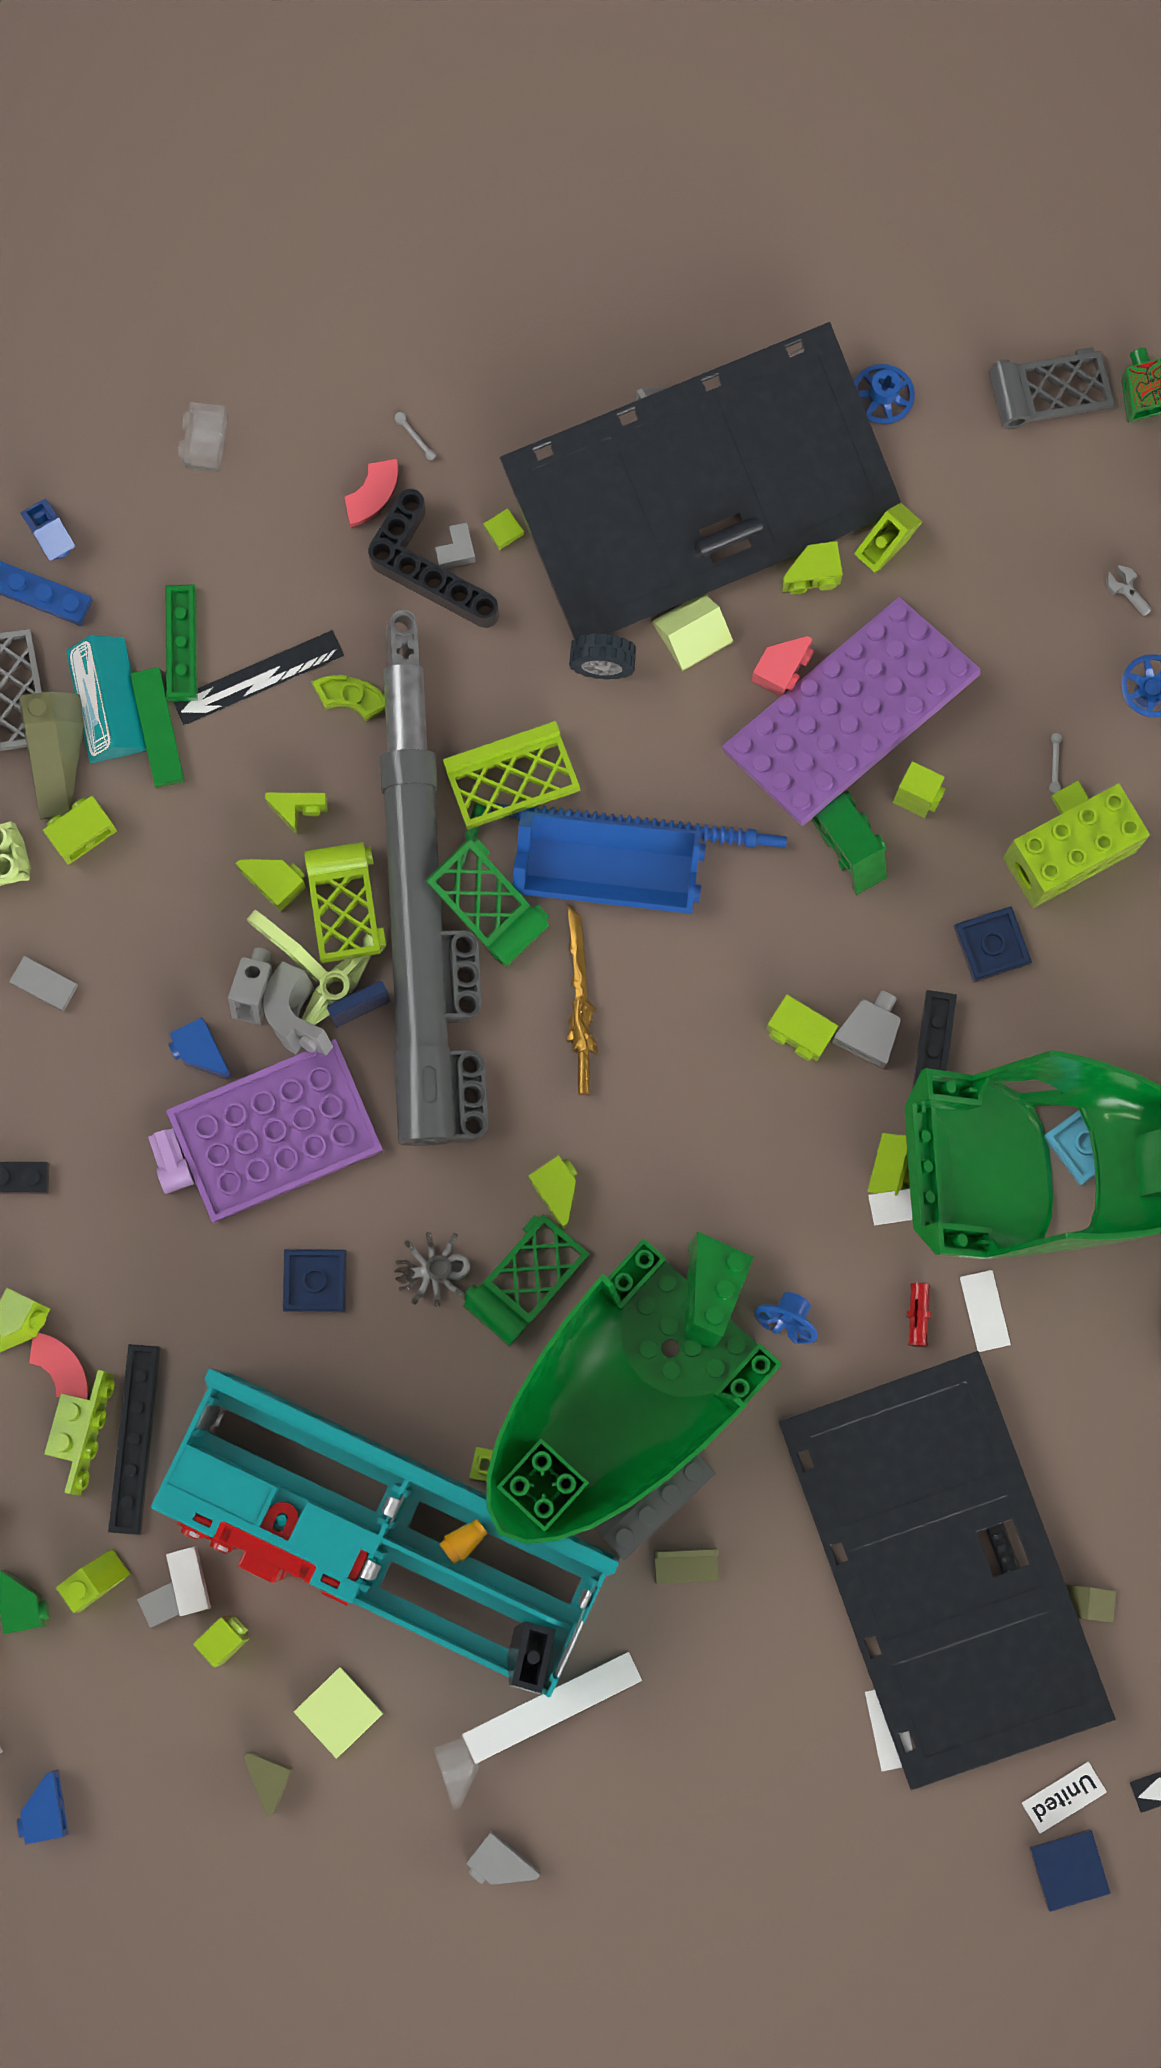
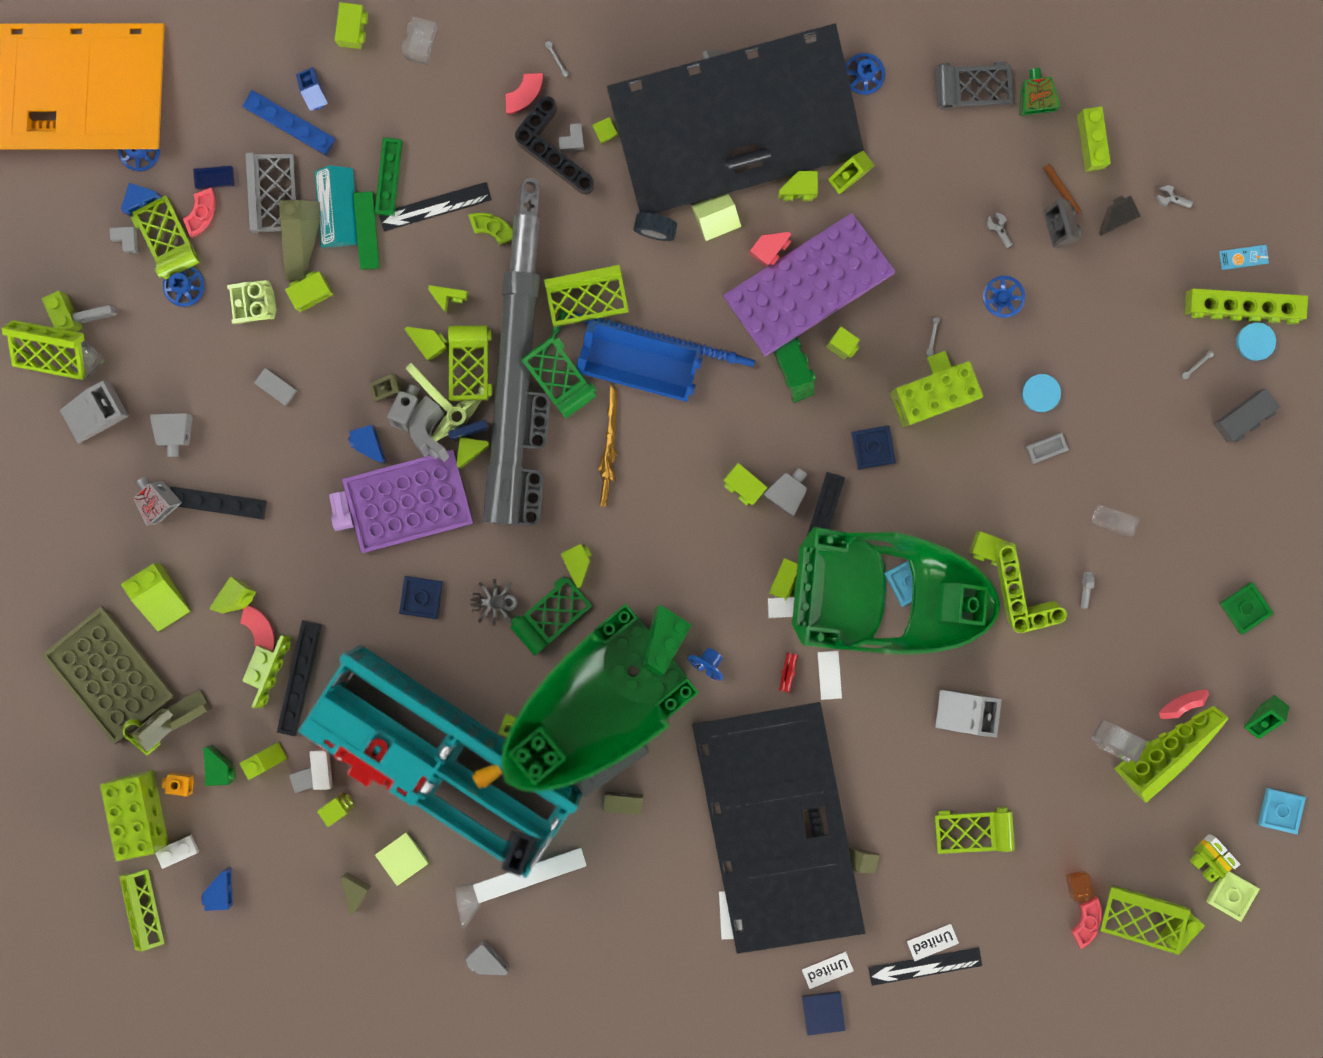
camera: 10 degrees right, 10 degrees up
(97, 430) = (350, 25): none -> lime brick
(217, 959) = (386, 387): none -> olive slope
(363, 1035) = (469, 450): none -> lime slope

